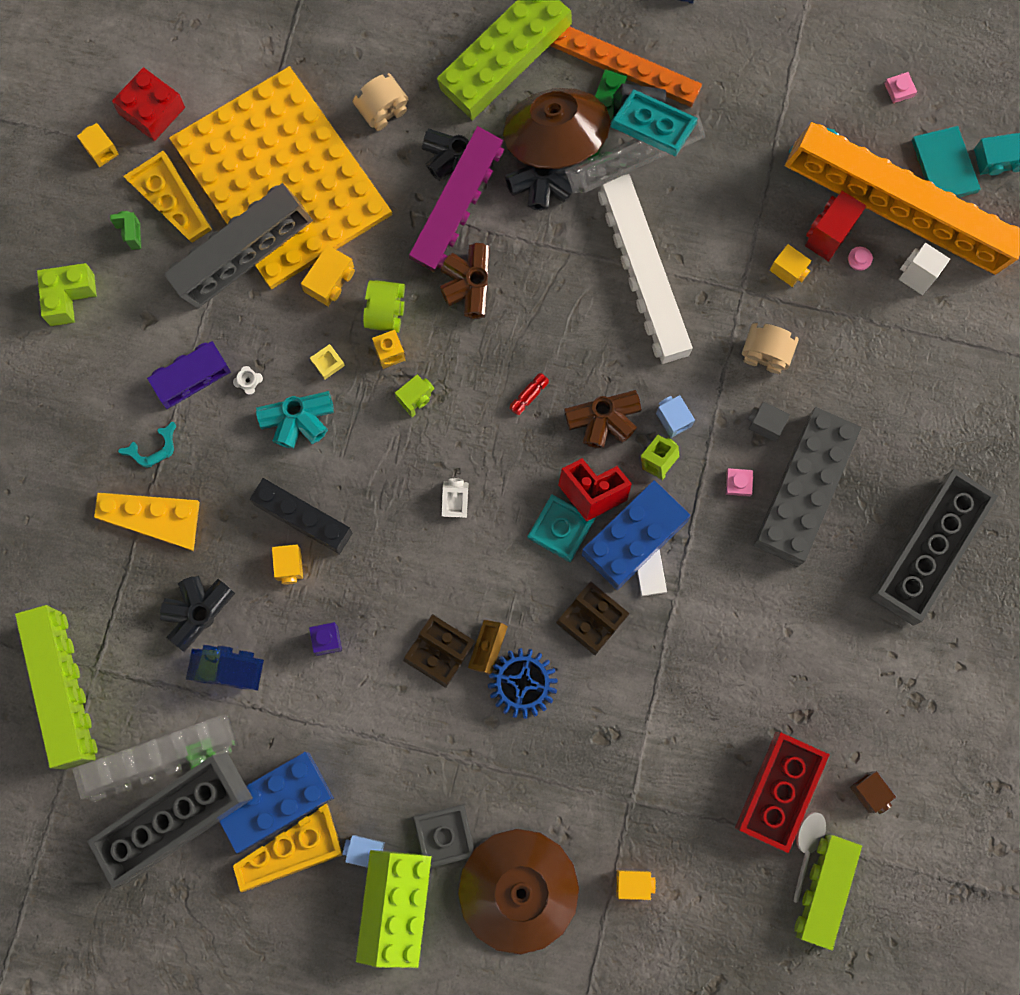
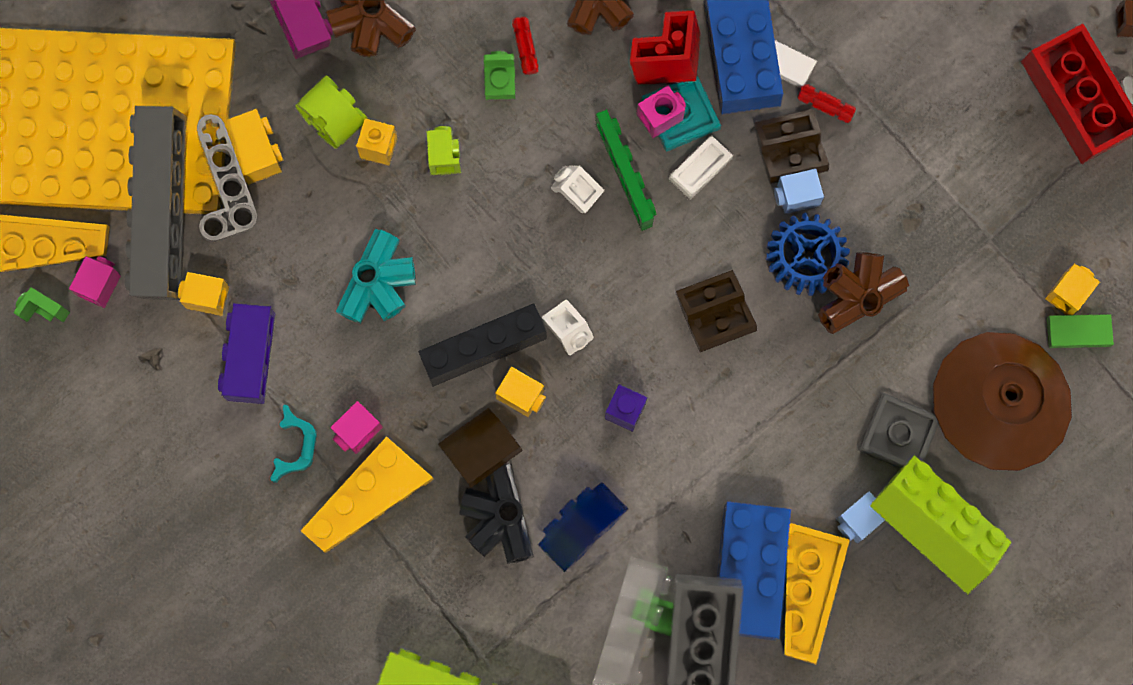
camera: 50 degrees left, 0 degrees up
(60, 287) = (50, 413): lime brick -> none
(168, 247) = (95, 281): none -> dark pink brick
(188, 477) = (355, 428): none -> dark pink brick
(208, 318) = (203, 293): none -> yellow brick
(231, 564) = (480, 447): none -> dark brown slope
(244, 374) = (290, 297): white plate -> none
(289, 269) = (220, 176): none -> light grey beam
(327, 361) = (341, 210): light yellow plate -> none
(354, 562) = (568, 327): none -> white bracket
(485, 529) = (631, 181): none -> green plate
(487, 646) = (747, 261): pearl gold plate -> none
(495, 393) = (499, 75): none -> bright green bracket
(515, 730) = (864, 284): none -> reddish brown piece
(532, 568) = (700, 167): none -> white tile
(541, 504) = (655, 122): none -> dark pink brick
(562, 645) = (799, 191): none -> light blue brick
(610, 911) = (1079, 331): none -> bright green tile
(641, 620) = (826, 103): none -> red axle

